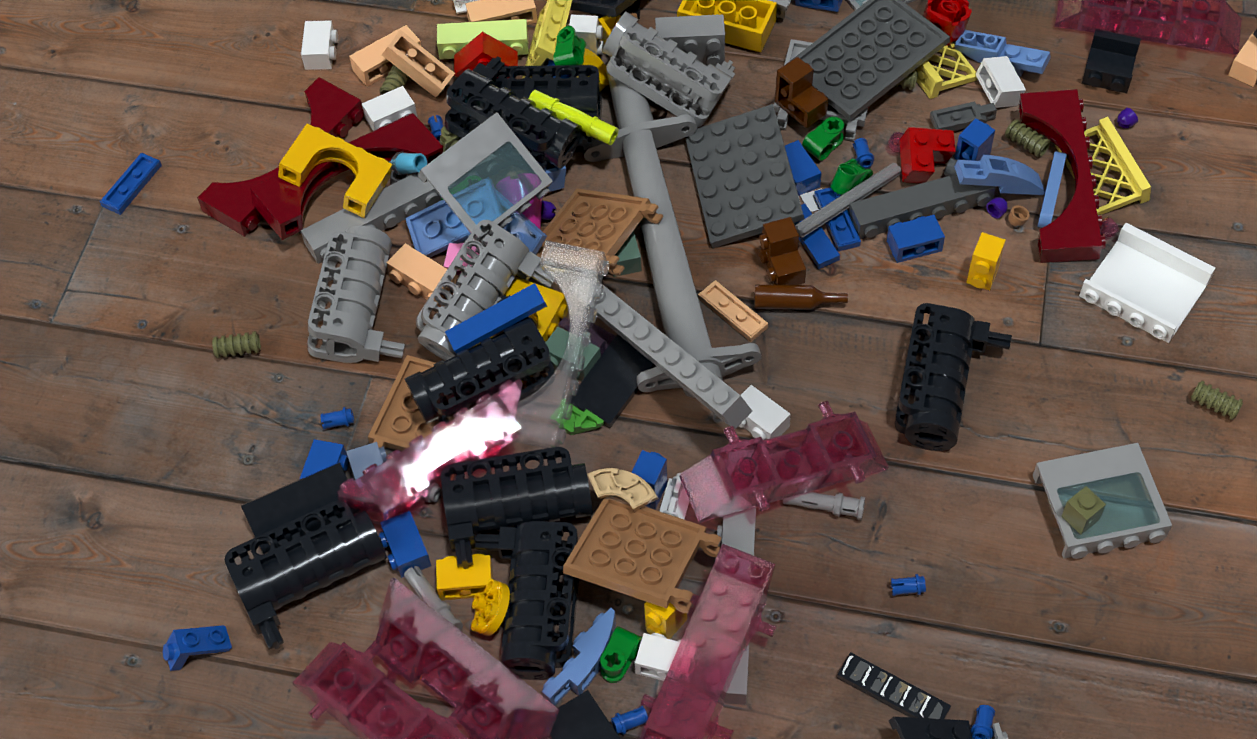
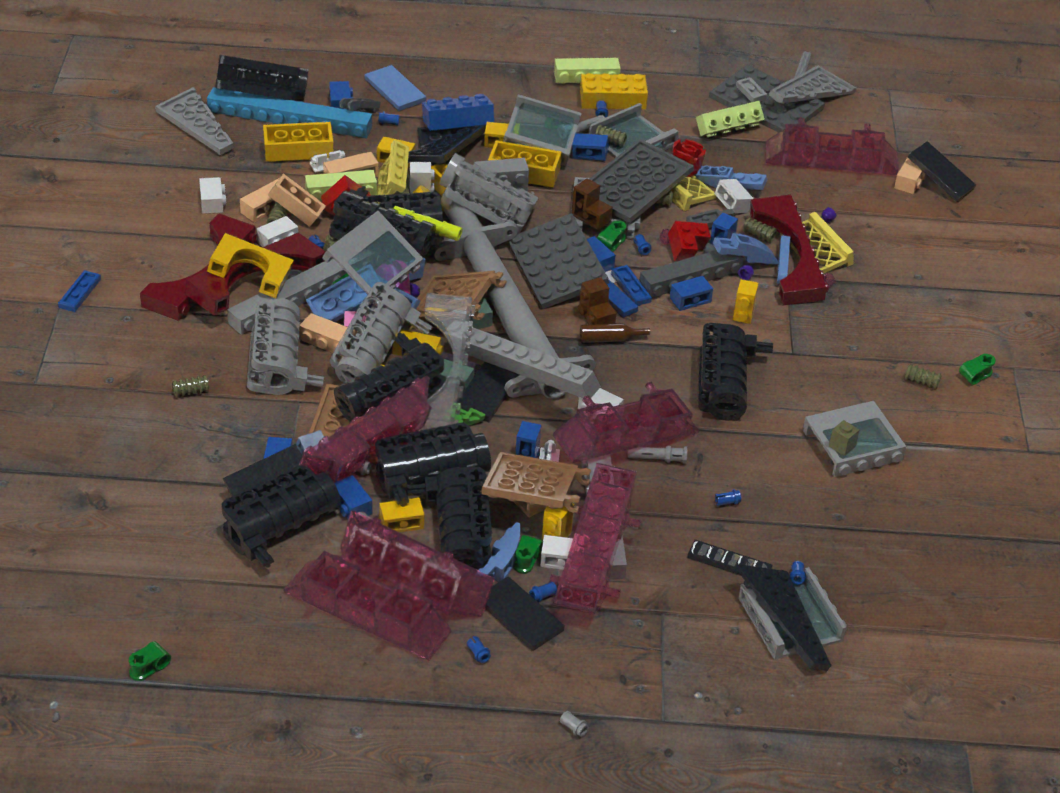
camera: 15 degrees left, 15 degrees down
(194, 642) = (196, 567): blue bracket -> none
(337, 418) = (282, 426): blue pin -> none
(408, 163) = (304, 262): medium azure piece -> none
(490, 607) = (428, 527): yellow tile -> none
(496, 318) = (398, 345): blue tile -> none
(569, 48) = (412, 181): green piece -> none
(622, 484) = (512, 442): tan tile -> none
(733, 311) = (566, 345): light nougat tile -> none
(843, 202) = (635, 272): light grey axle -> none
(849, 176) = (637, 258): green piece -> none
(1021, 217) = (762, 276): medium nougat hinge -> none
(1111, 61) = (810, 181): black panel -> none
(1147, 283) = (862, 310): white panel -> none

